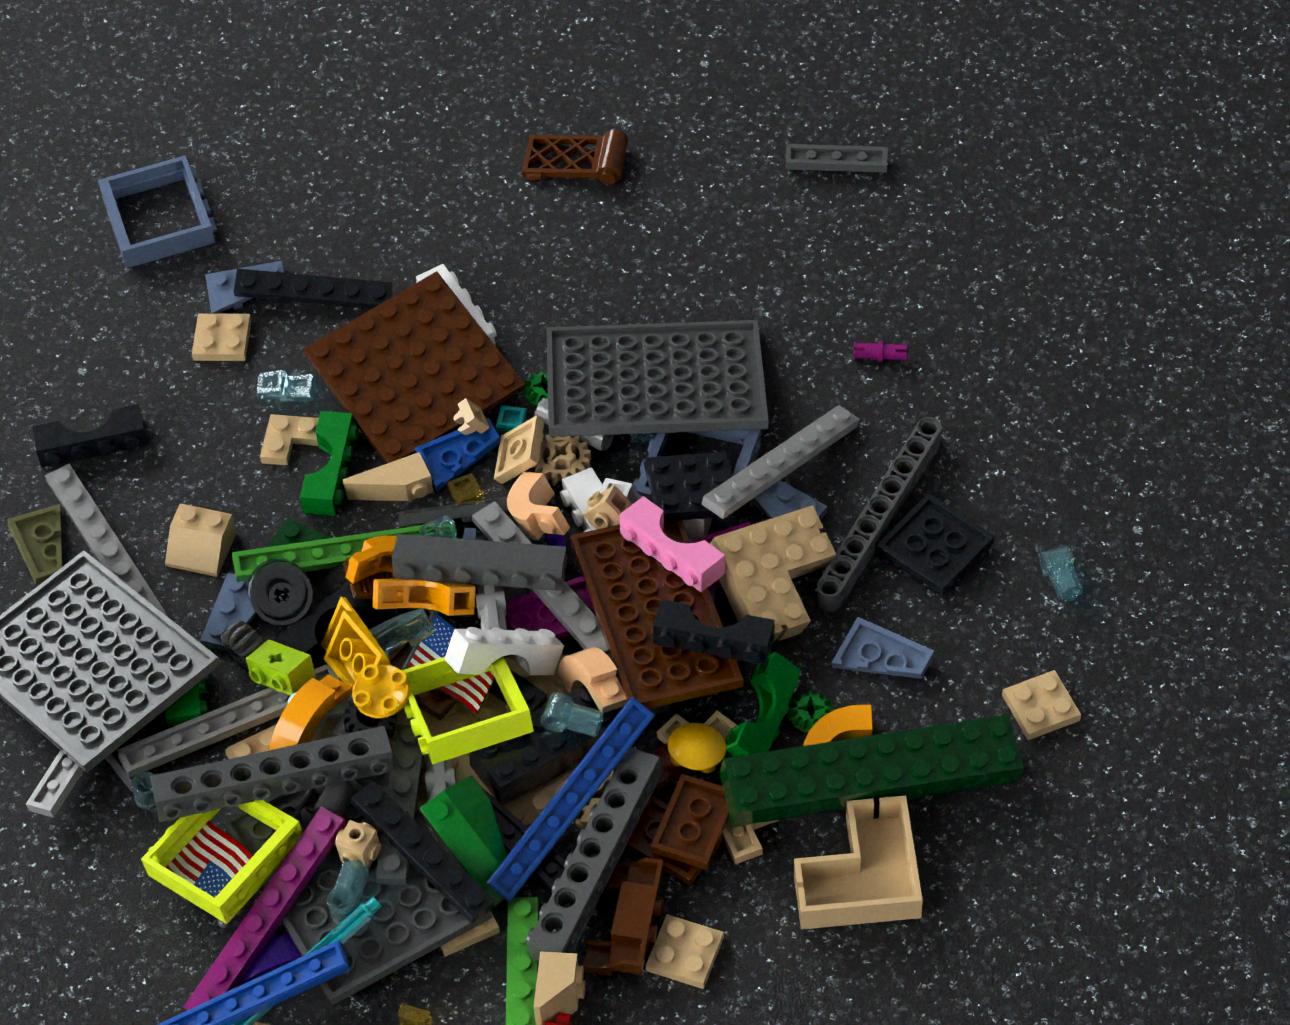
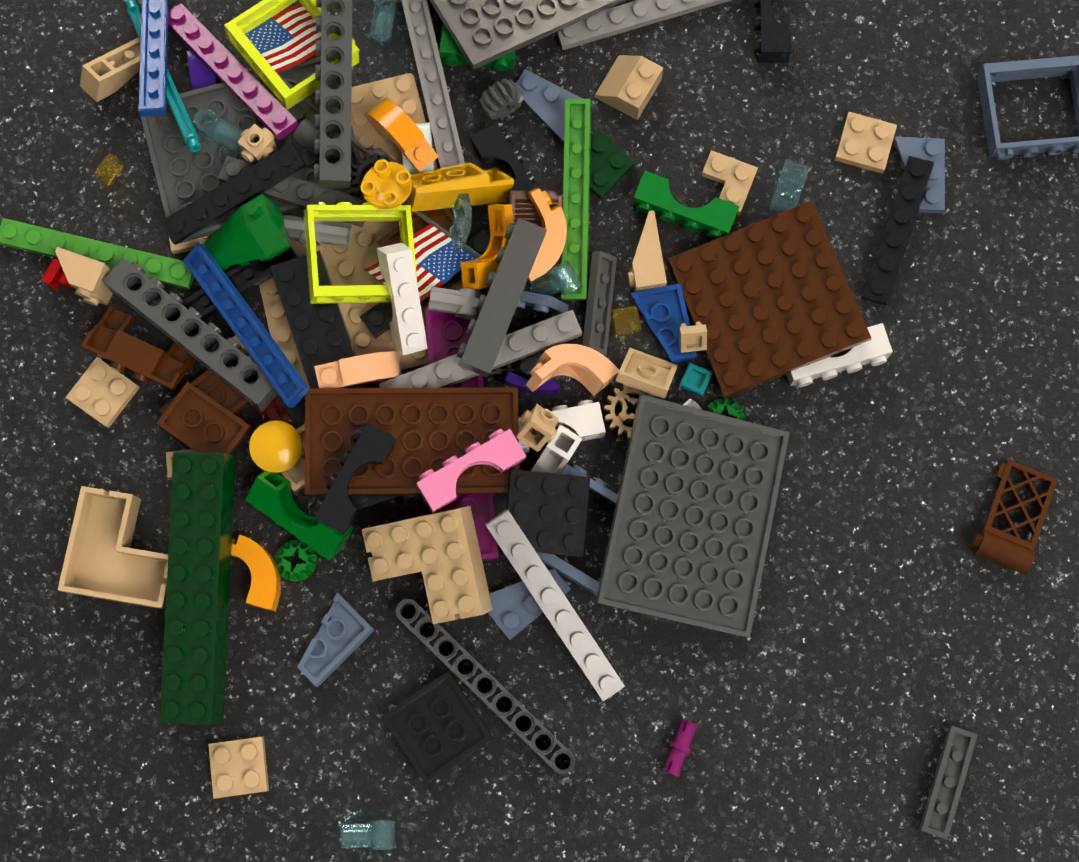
camera: 105 degrees right, 25 degrees up
(280, 667) = (455, 131): lime brick -> none
(289, 605) = (540, 132): black wheel -> none
(564, 714) = (316, 331): clear light blue piece -> none

